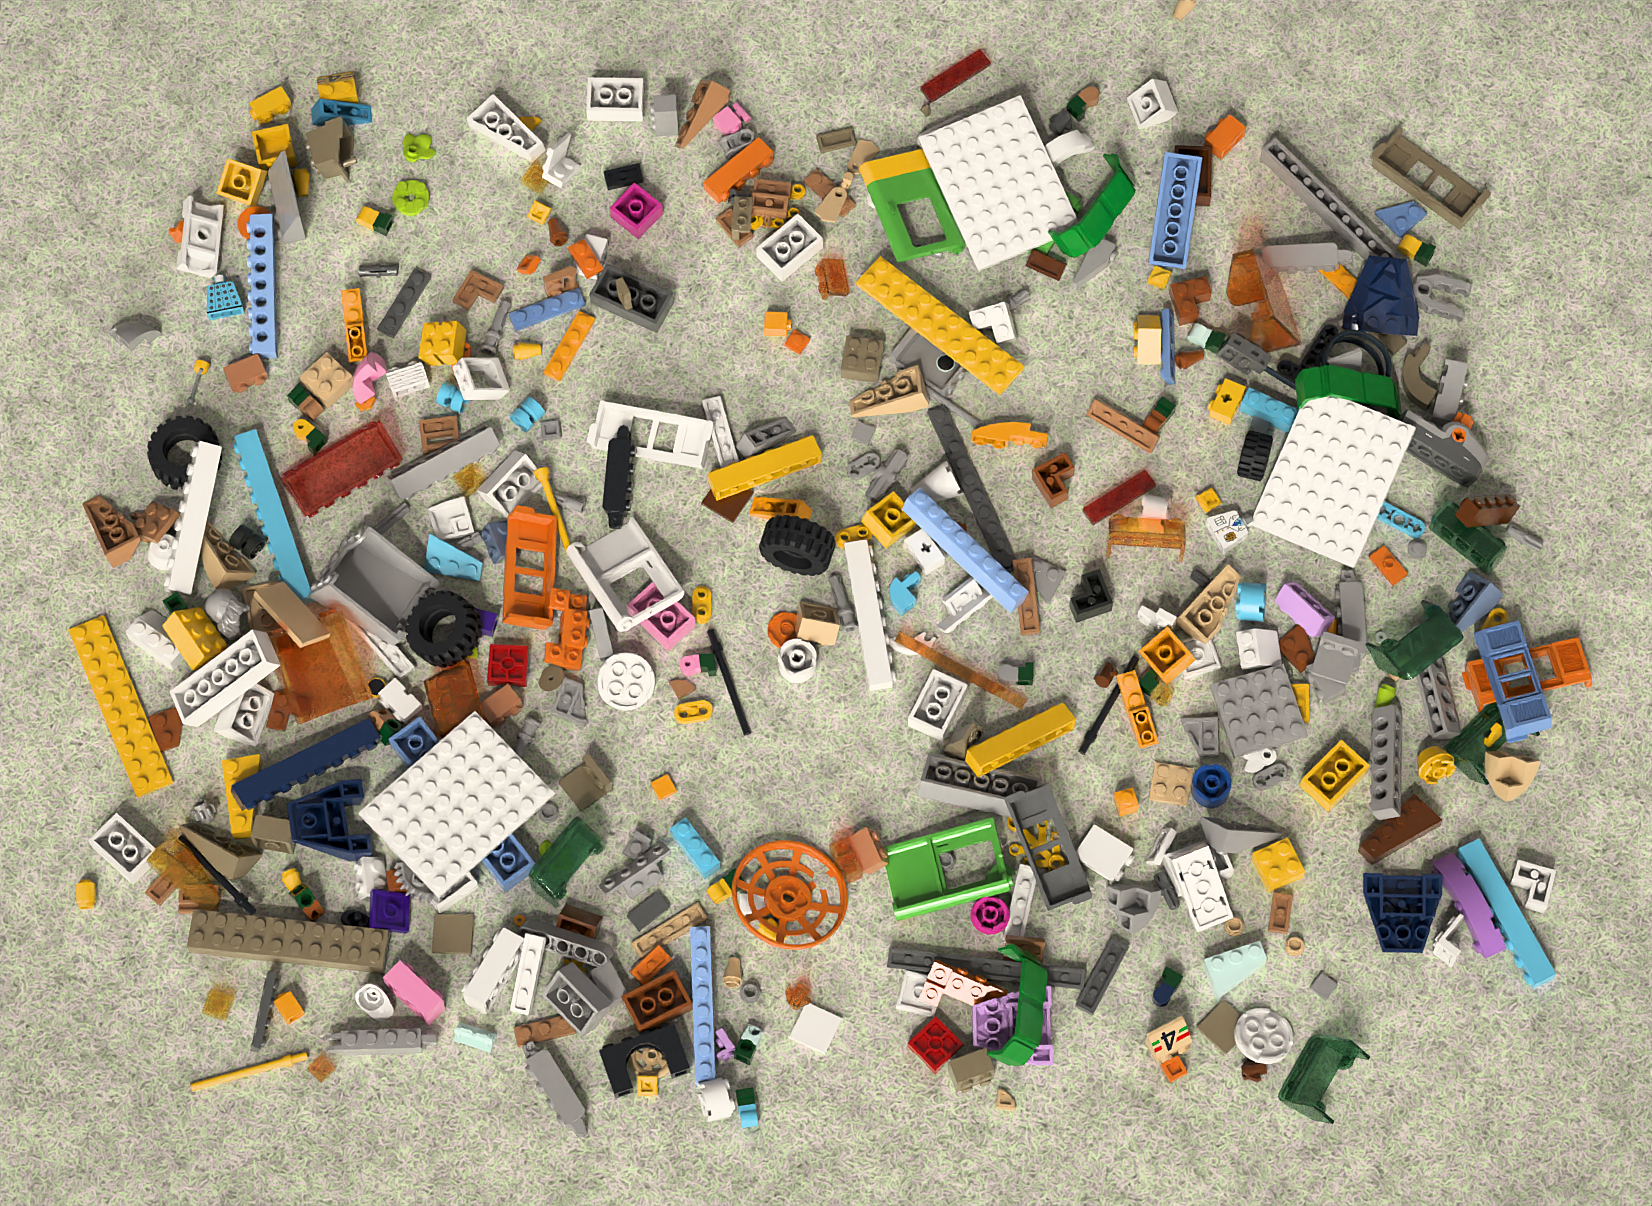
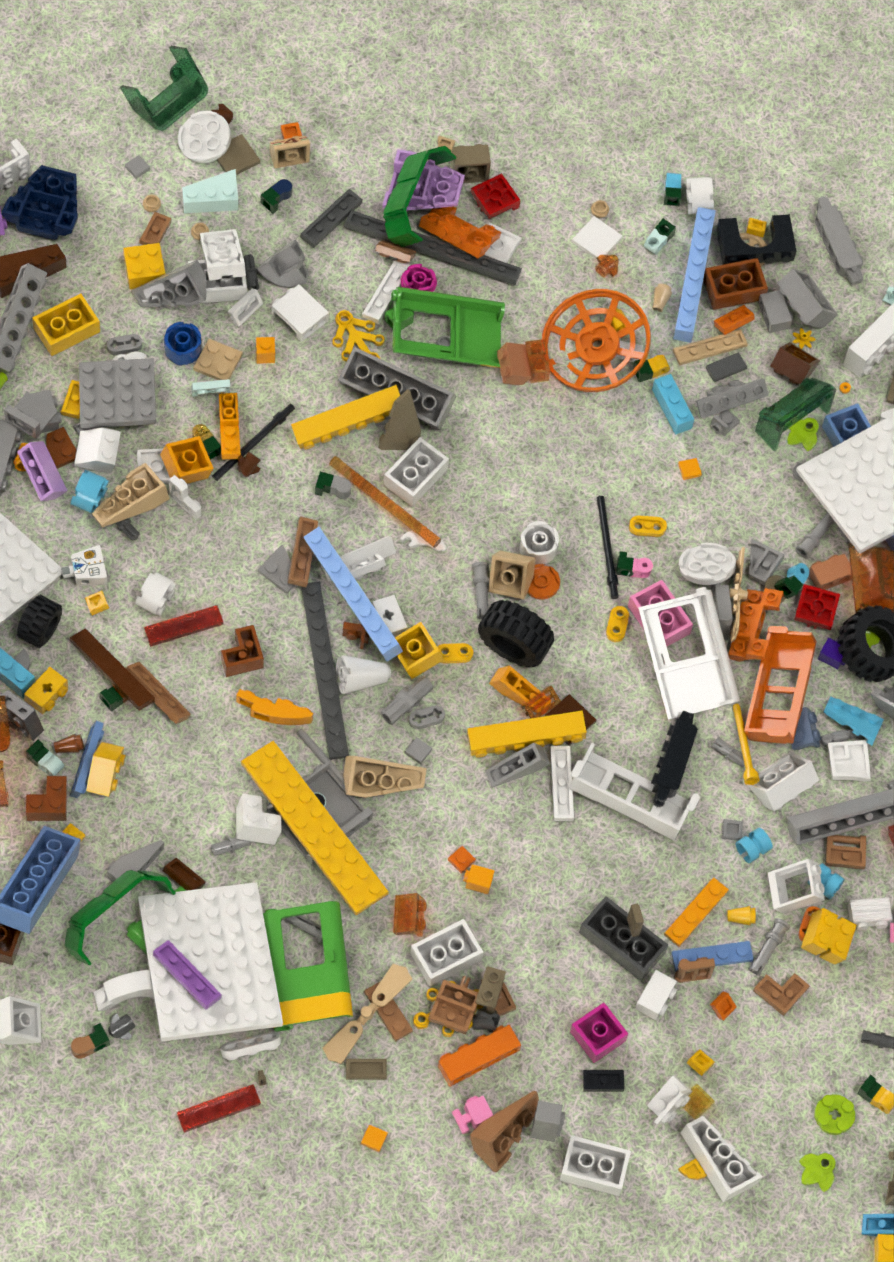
camera: 175 degrees left, 5 degrees down
(404, 303) = (860, 999): dark grey plate -> none
(468, 480) = (823, 795): clear yellow piece -> none
(528, 974) = (847, 330): white plate -> none
(536, 686) = (794, 581): none -> leg
(543, 1031) = (844, 292): medium nougat plate -> none
(557, 233) = (686, 1035): dark orange cone -> none
(574, 943) = (809, 347): light grey beam -> none
(585, 259) = (665, 983): orange plate -> none
(586, 783) = (762, 486): dark tan bracket -> none
(589, 650) = (737, 594): none -> tan piece
(681, 688) = (653, 552): medium nougat tile -> none
(724, 1042) = (681, 240): lavender bracket -> none
(735, 142) = (477, 1086): light grey piece -> none
(750, 986) = (647, 284): light grey plate -> none
(759, 503) = (529, 712): none -> clear orange tile
(813, 84) = (374, 1138): none -> light orange tile
(820, 1064) = (600, 209): none -> tan plate
(862, 359) = (401, 819): dark tan brick -> none
(868, 615) = (459, 572): white brick -> none
(900, 593) = (423, 585): medium azure brick -> none
(1014, 152) = (187, 974): none -> medium lavender plate
(1063, 883) = (351, 291): dark grey piece -> none
(1095, 599) = (238, 530): pearl dark grey brick -> none
(1146, 533) = (174, 561): clear orange windscreen -> none
(1168, 742) = (218, 386): none -> light aqua plate
(1172, 430) = (112, 669): none -> reddish brown tile
(1203, 734) = (174, 394): light grey wing -> none

